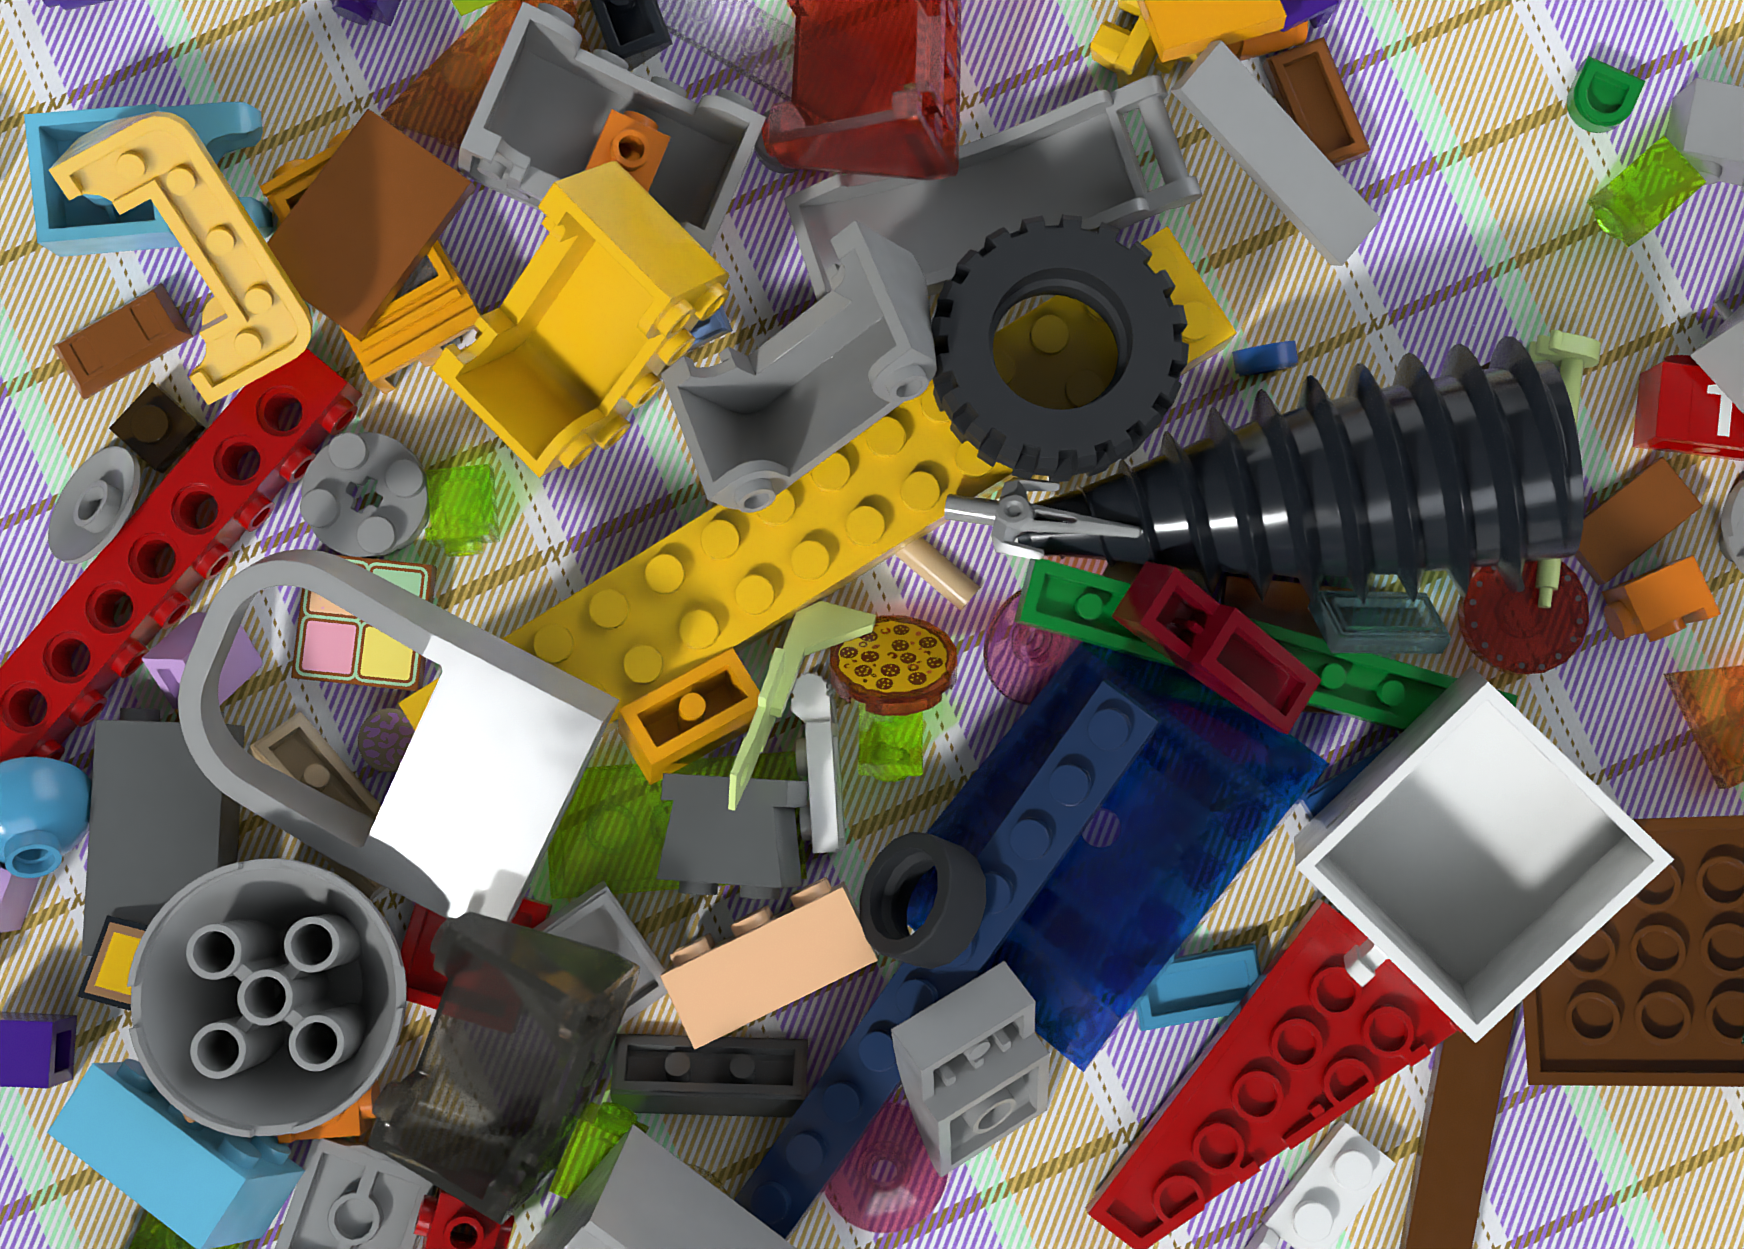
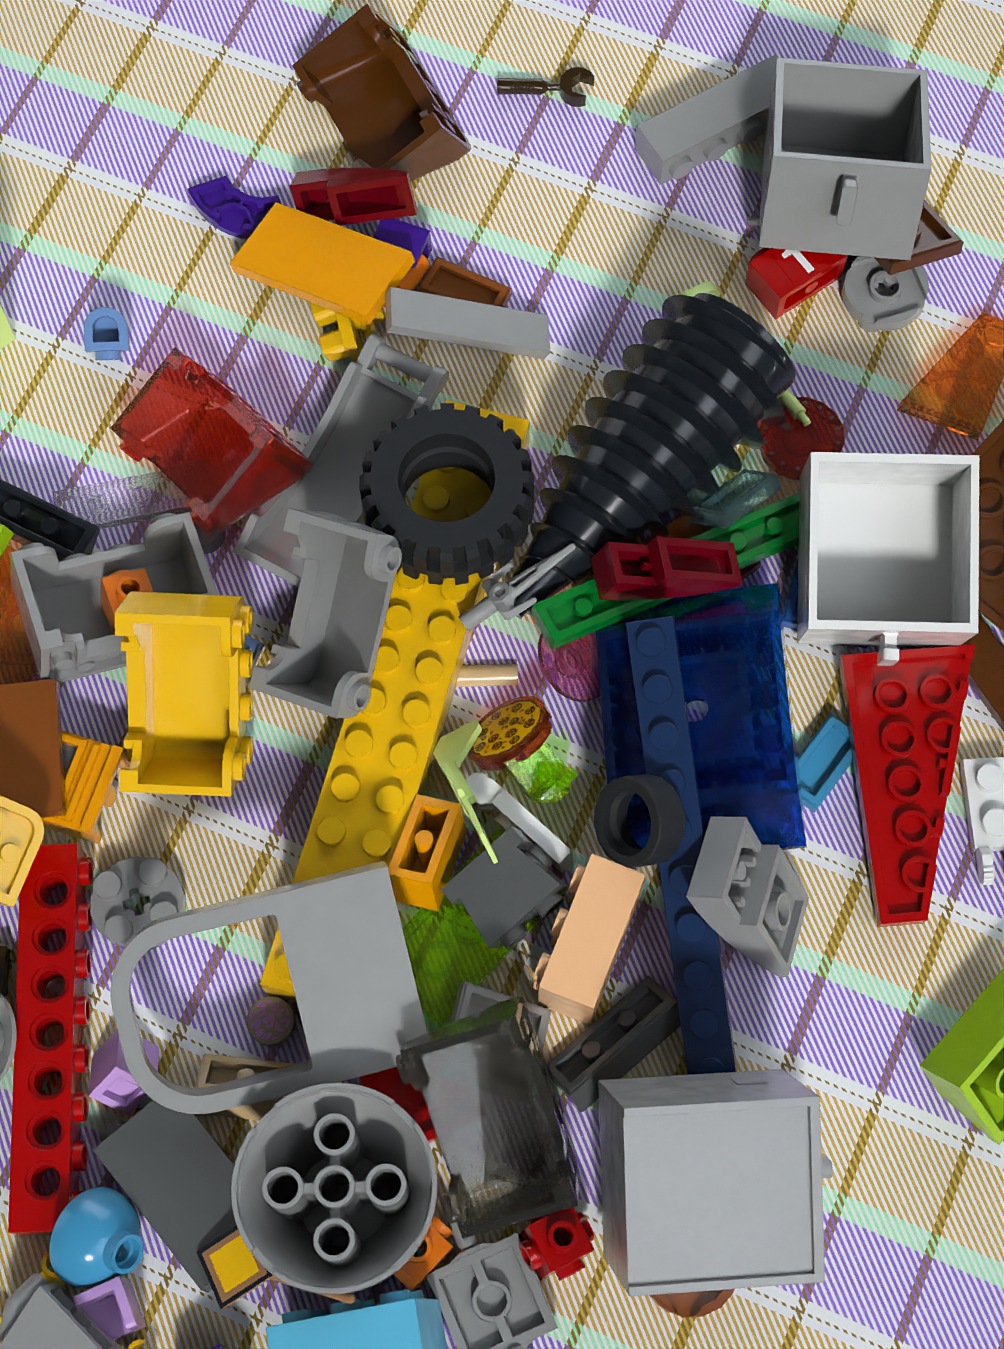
camera: 40 degrees left, 15 degrees down
(346, 650) = (198, 976): tile -> none
(462, 509) = (199, 863): clear neon green bracket -> none
(591, 1141) = (584, 1133): clear neon green brick -> none
(891, 1204) = (773, 1025): clear pink dish -> none
(1265, 358) = (555, 426): blue tile -> none
(1602, 96) = (599, 174): green tile -> none
(1634, 520) = (810, 350): dark orange tile -> none
(1645, 192) = (664, 197): clear neon green brick -> none
(1659, 601) = (860, 374): orange brick -> none

